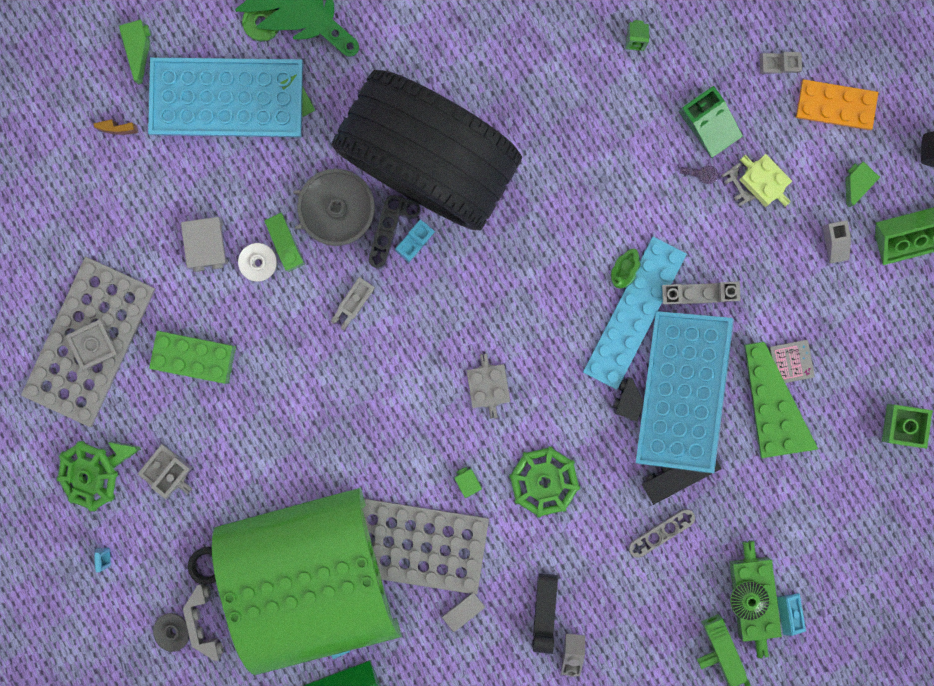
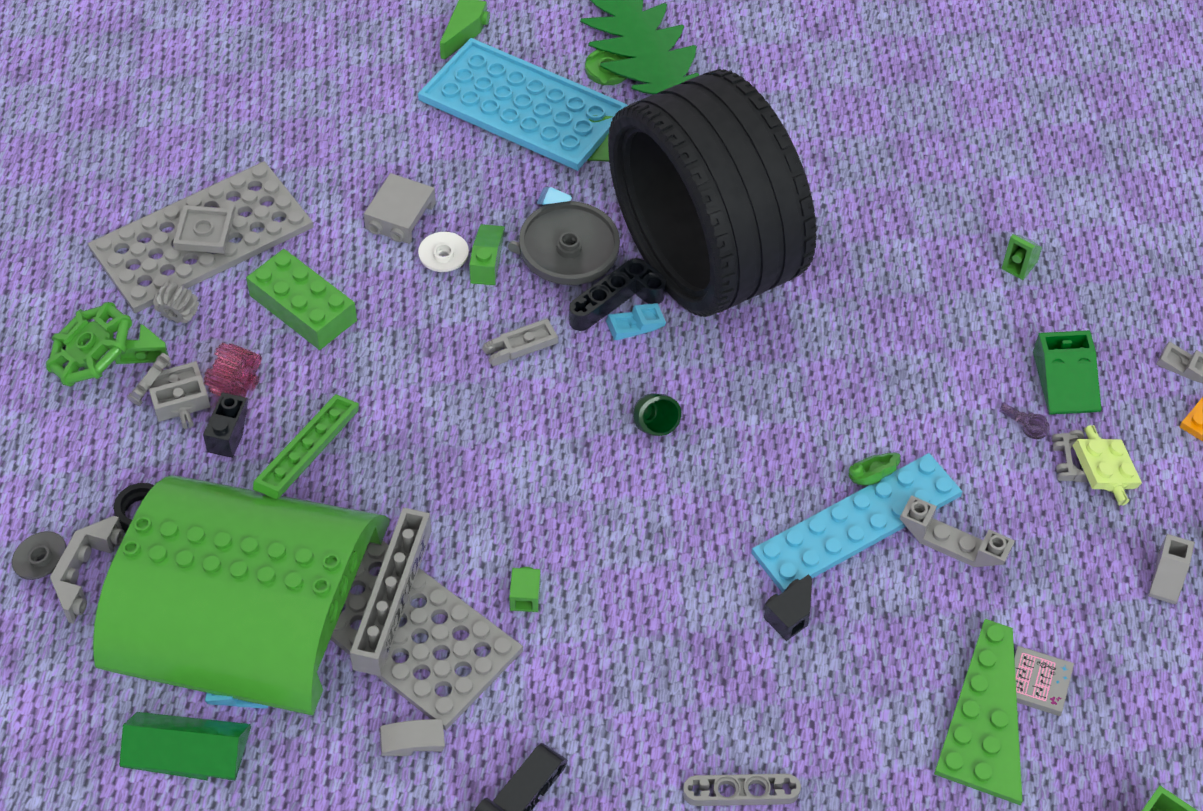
camera: 25 degrees right, 35 degrees down
(102, 559) = (29, 432): medium azure slope -> none
(111, 127) = (382, 71): pearl gold slope -> none
(116, 411) = (176, 302): none -> light grey gear
(143, 472) = (143, 386): none -> light grey piece
(193, 443) = (233, 370): none -> clear pink brick
(215, 479) = (226, 425): none -> black slope
(278, 471) = (305, 447): none -> bright green plate
(302, 175) = (550, 195): none -> medium azure slope
(397, 540) = (391, 592): none -> light grey brick
(472, 311) = (657, 414): none -> dark green hat
(488, 385) = (623, 504): light grey plate -> none
(538, 491) = (628, 658): bright green plate -> none
(672, 480) = (815, 723): black wedge -> none
(685, 391) = (871, 622): medium azure plate -> none

